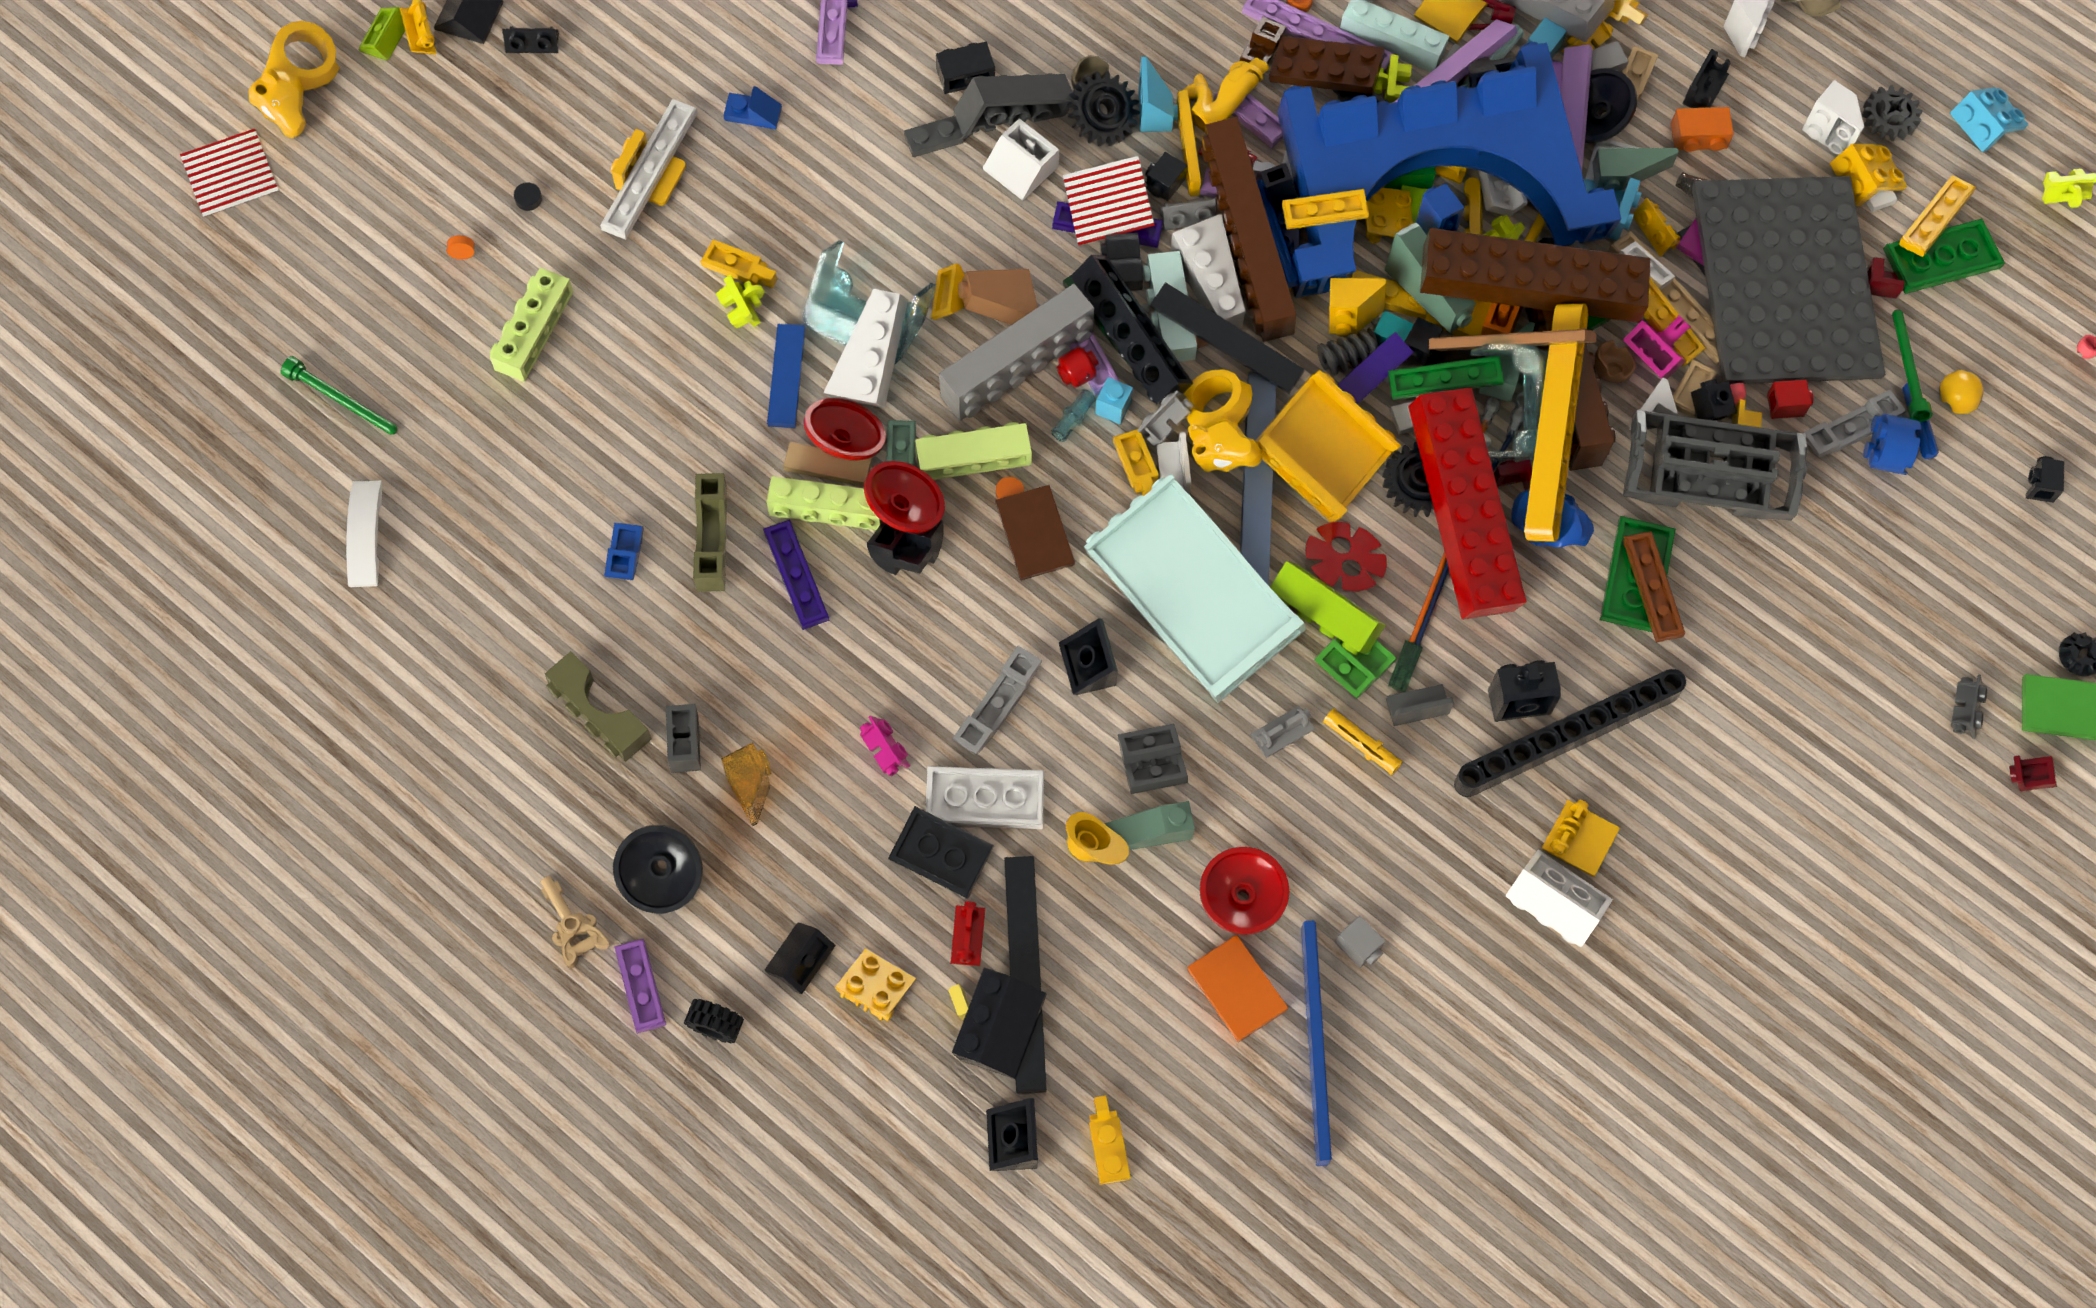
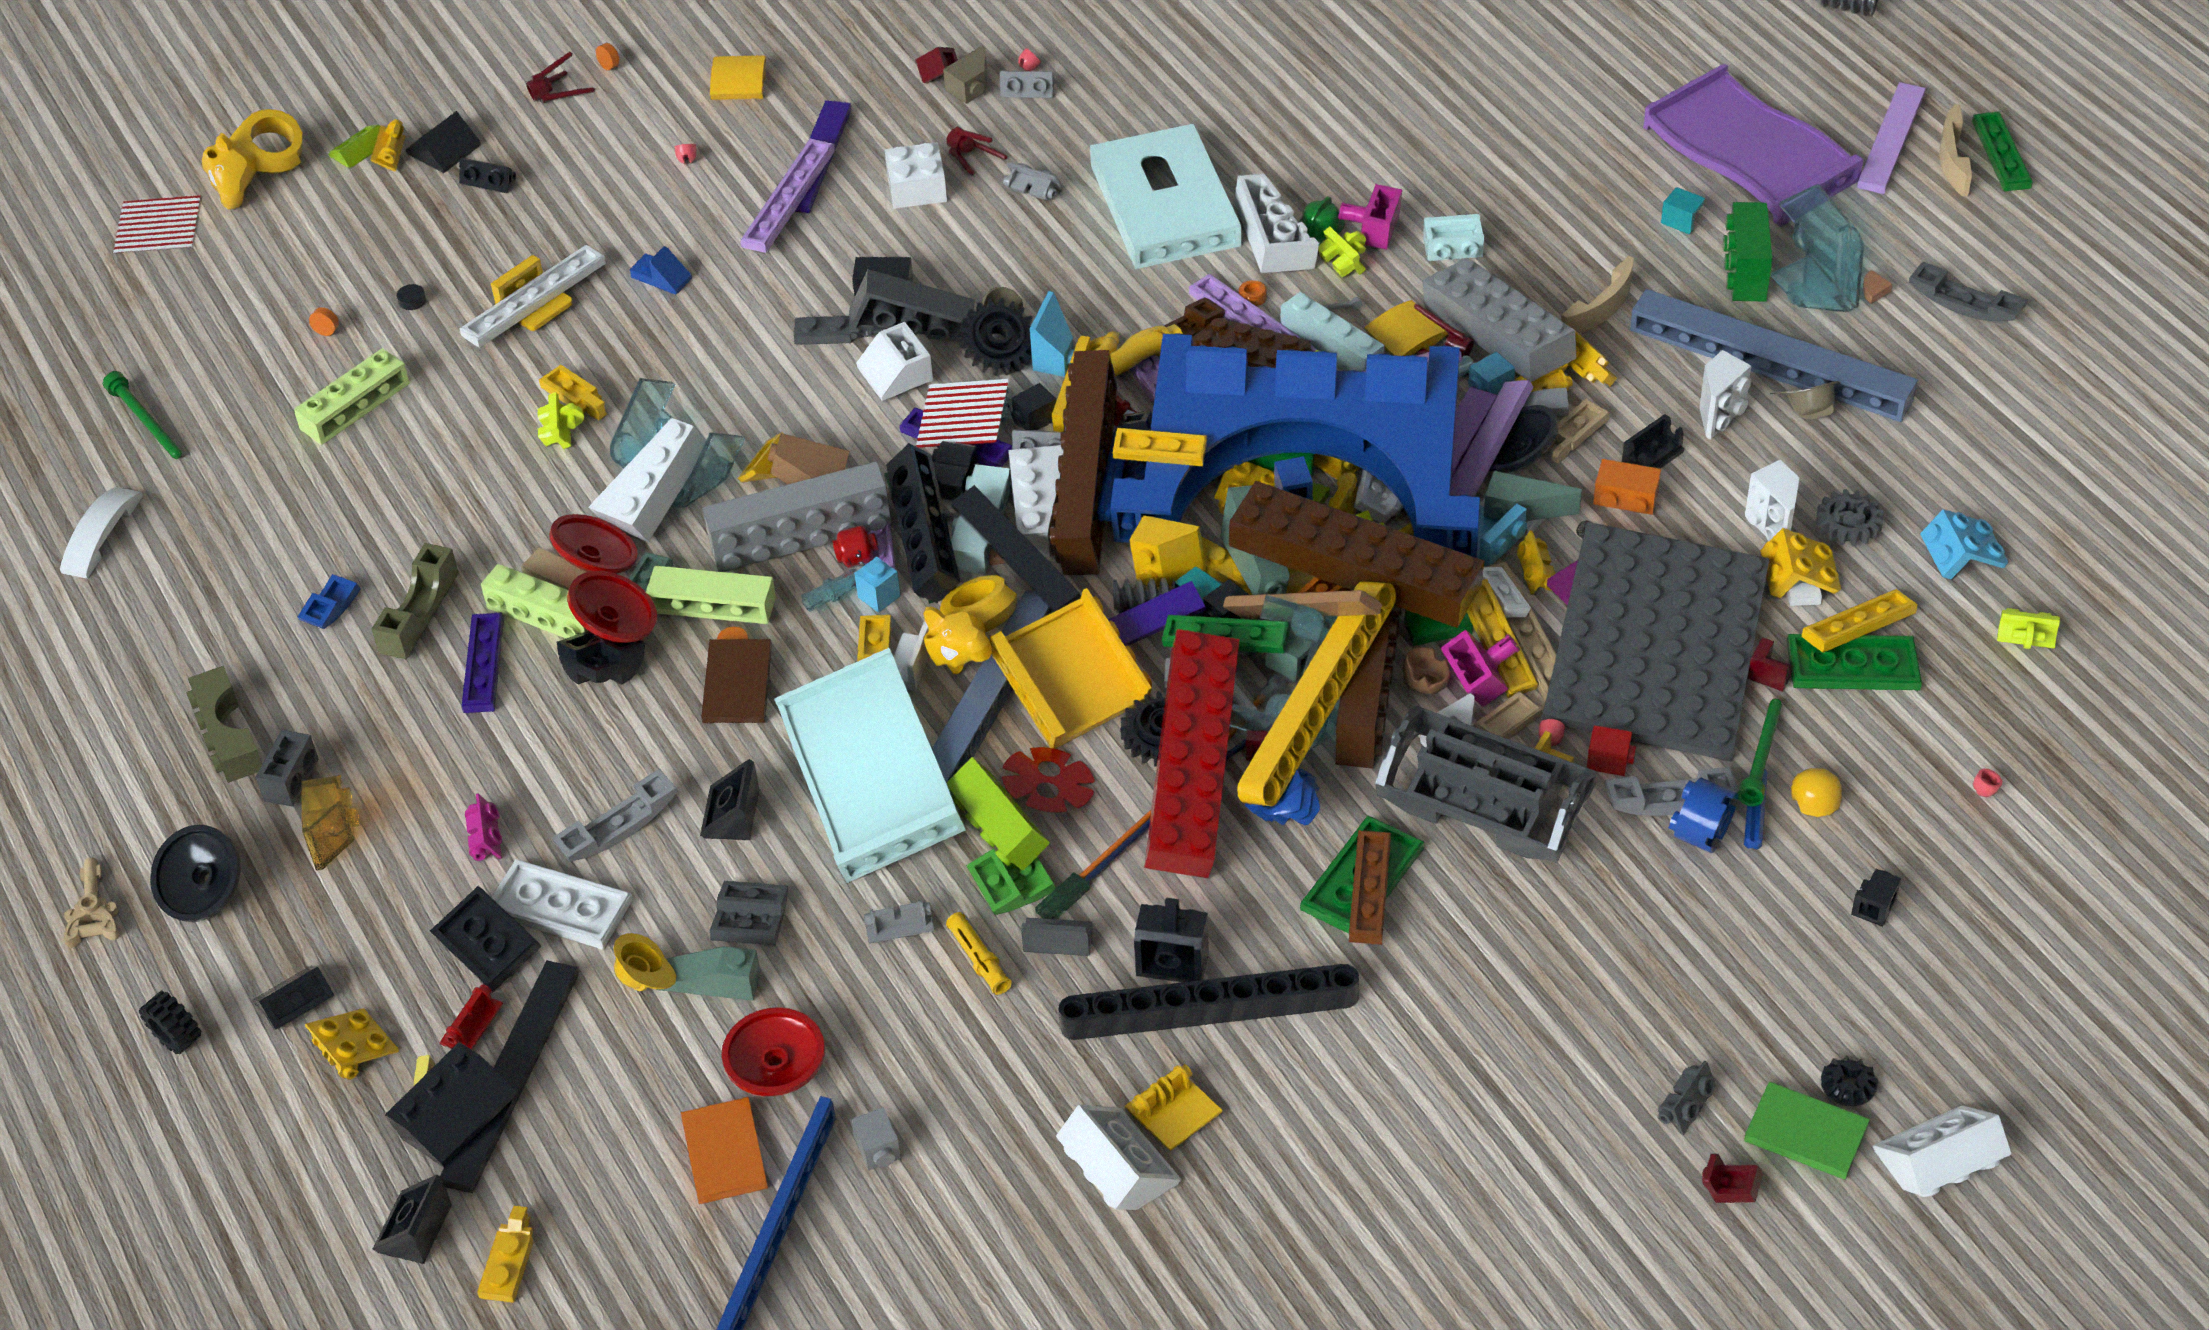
camera: 25 degrees right, 20 degrees down
(640, 986) = (124, 980): medium lavender tile -> none
(786, 376) = (569, 491): blue tile -> none
(1172, 409) = (908, 610): light grey hinge -> none
(1713, 401) = (1520, 725): black brick -> none

